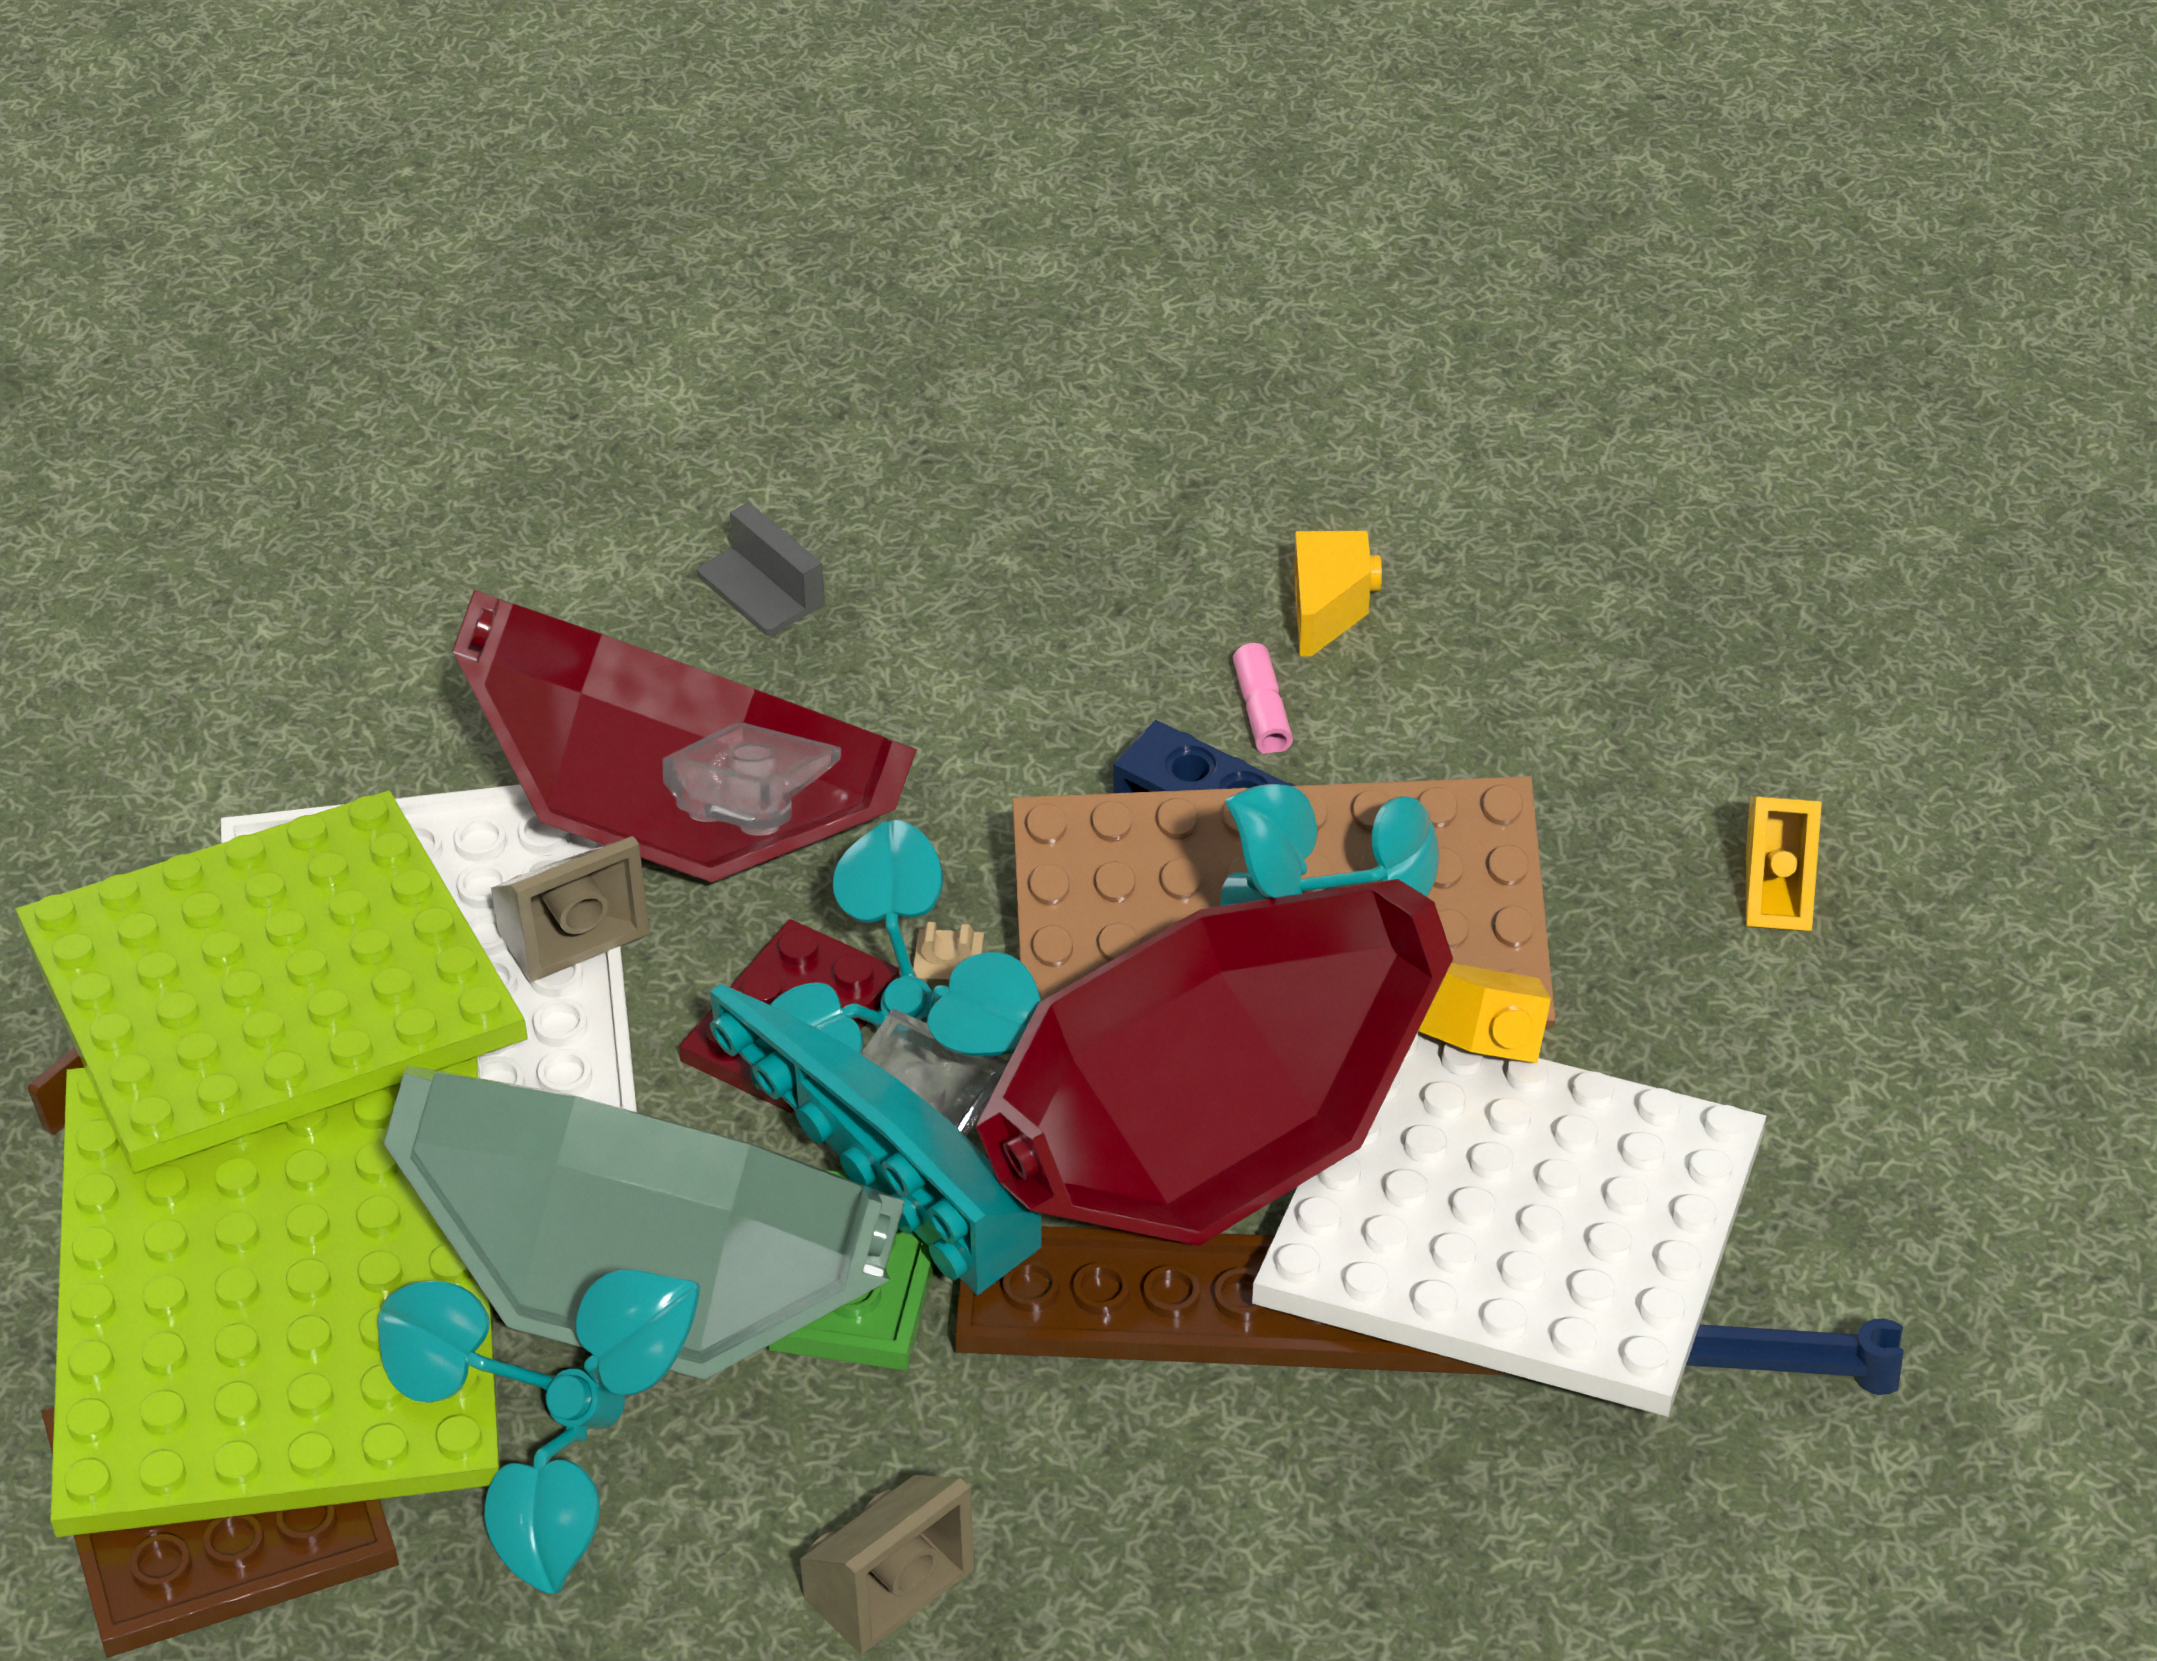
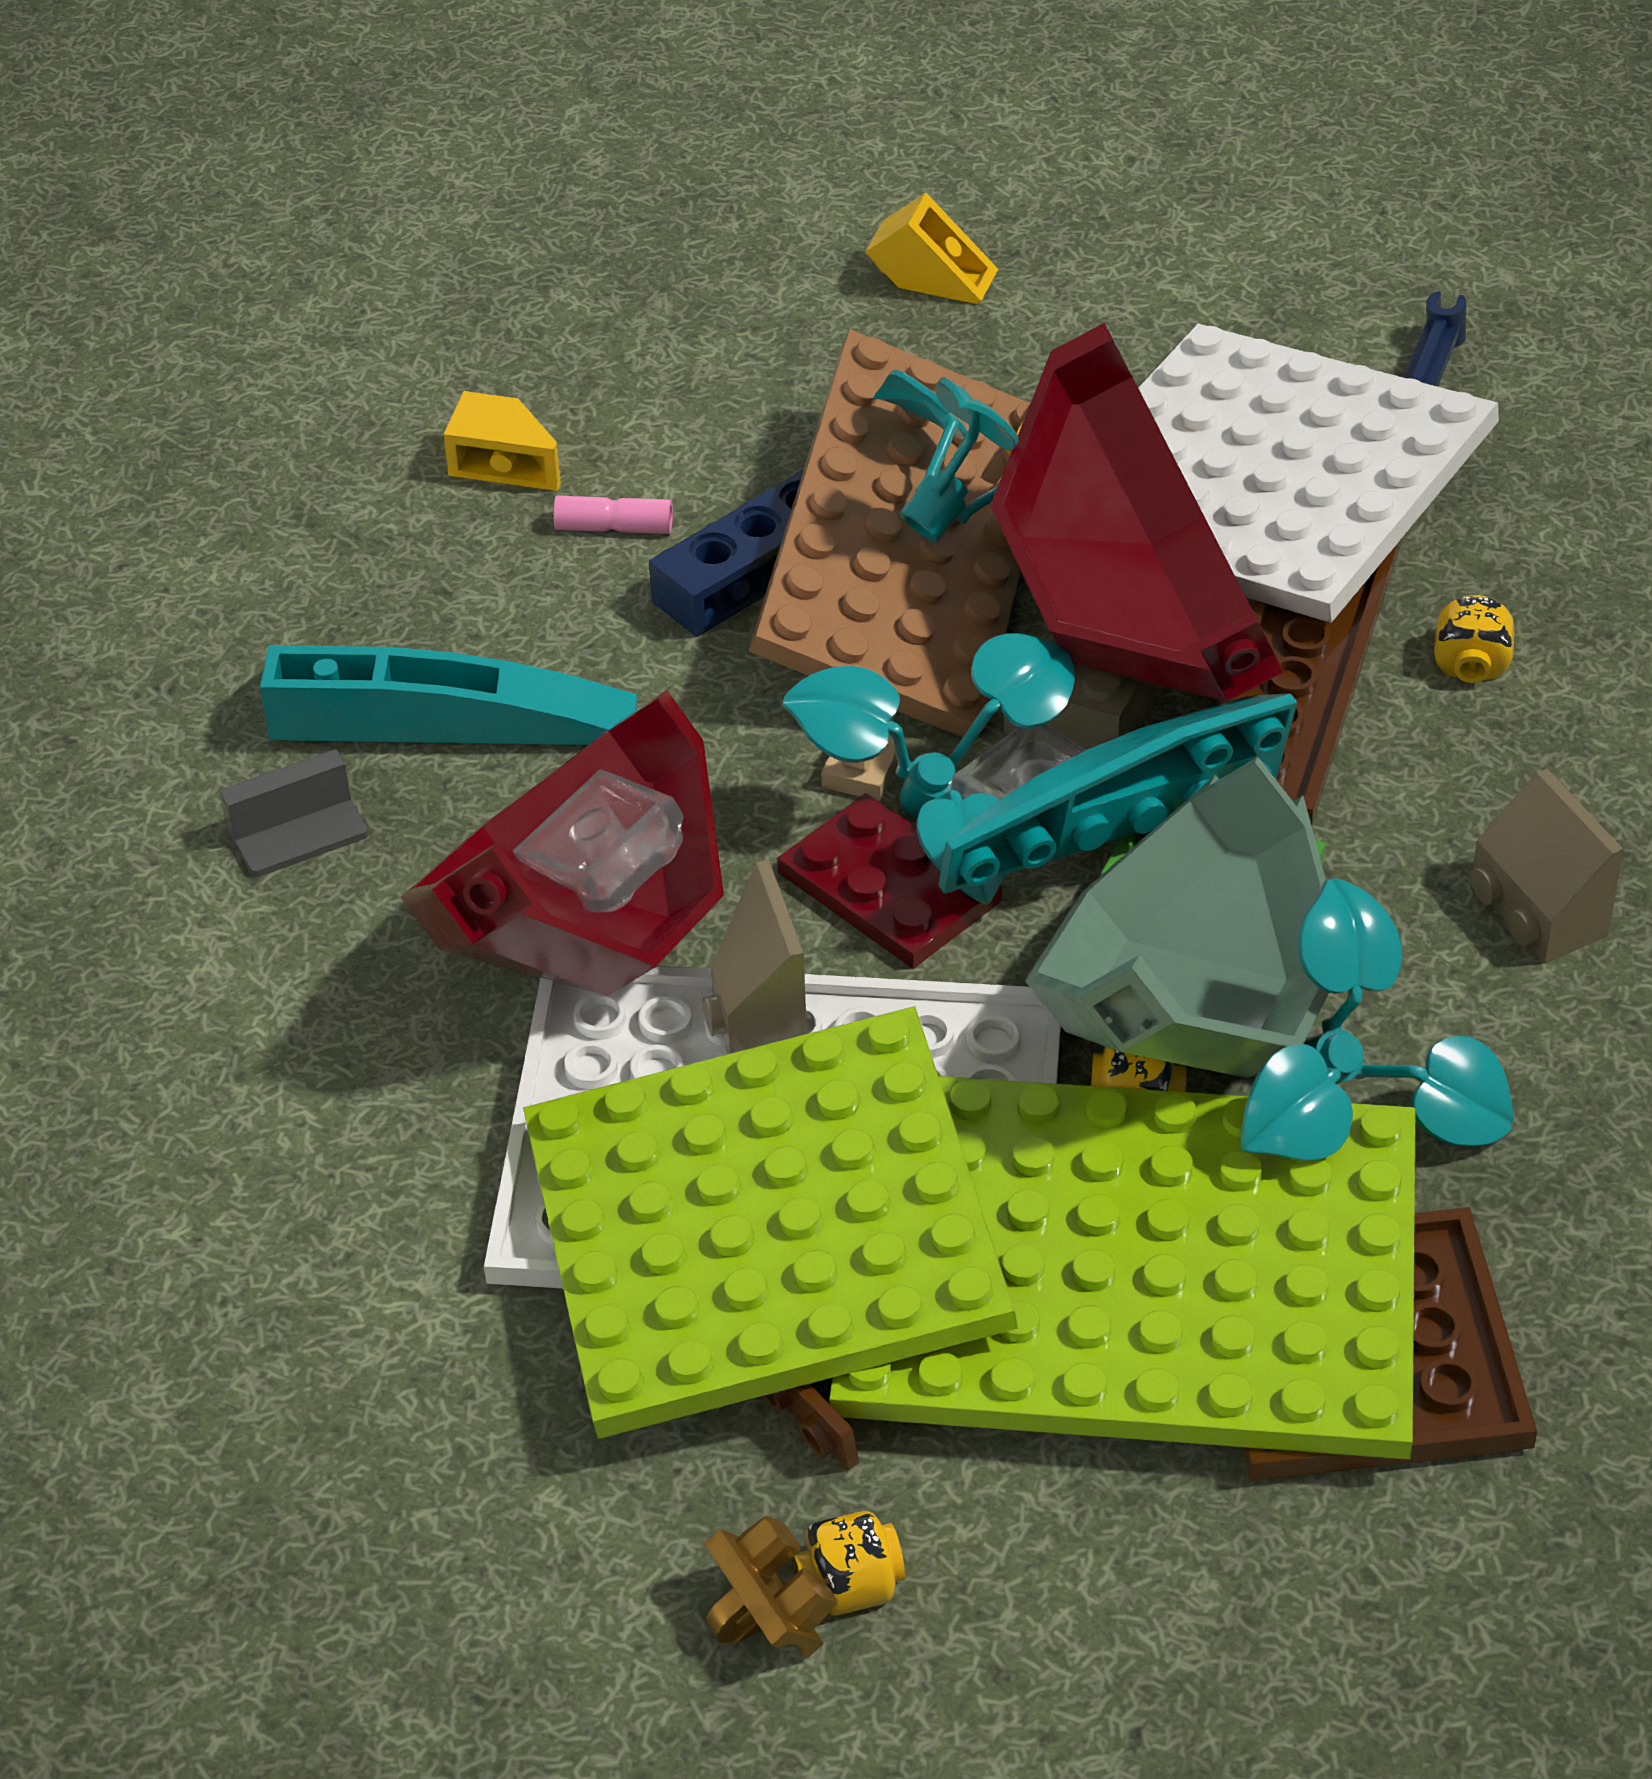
camera: 75 degrees left, 0 degrees up
(946, 619) = (430, 698): none -> teal wedge
(1291, 1455) = (1474, 636): none -> yellow head

